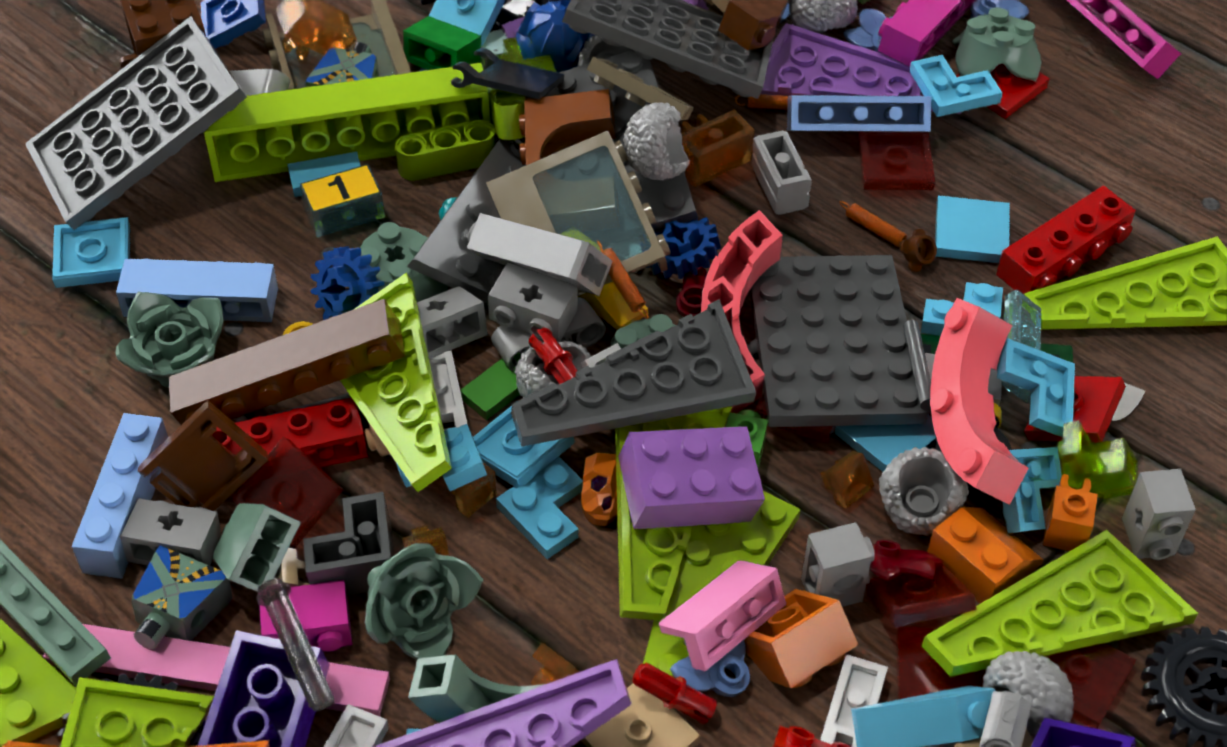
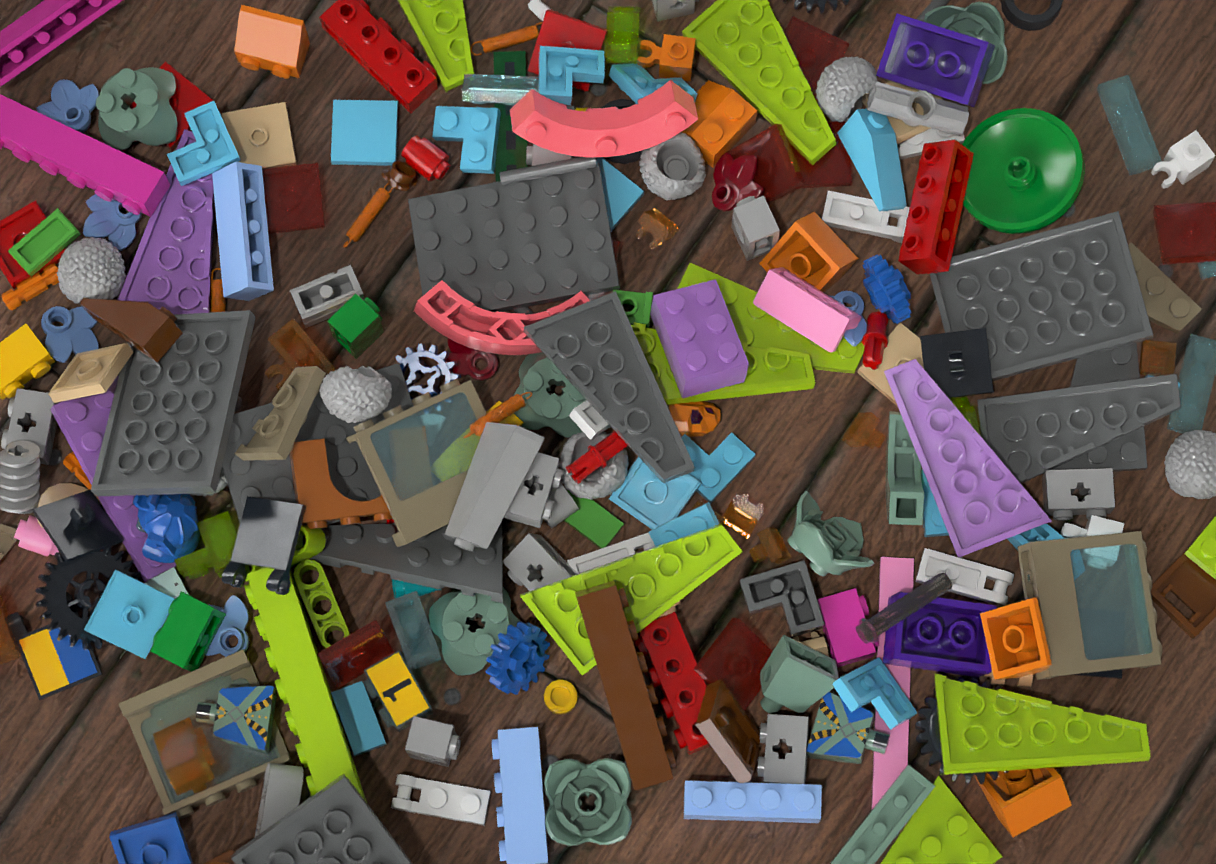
camera: 95 degrees left, 25 degrees up
(210, 637) = (875, 685): none -> medium azure plate
(222, 227) = (442, 800): none -> white plate
(276, 209) = (432, 742): none -> light grey brick
(387, 158) = (355, 653): none -> clear red plate
(406, 203) = (413, 630): none -> clear light blue brick
(471, 526) = (743, 515): none -> clear orange tile
(741, 707) = (887, 289): none -> blue gear
(743, 184) = (356, 325): none -> green brick
(939, 272) = (426, 158): none -> red brick
(966, 146) = (262, 135): none -> tan plate
(1070, 149) = (271, 42): none -> orange slope
(1085, 355) = (508, 39): none -> orange piece

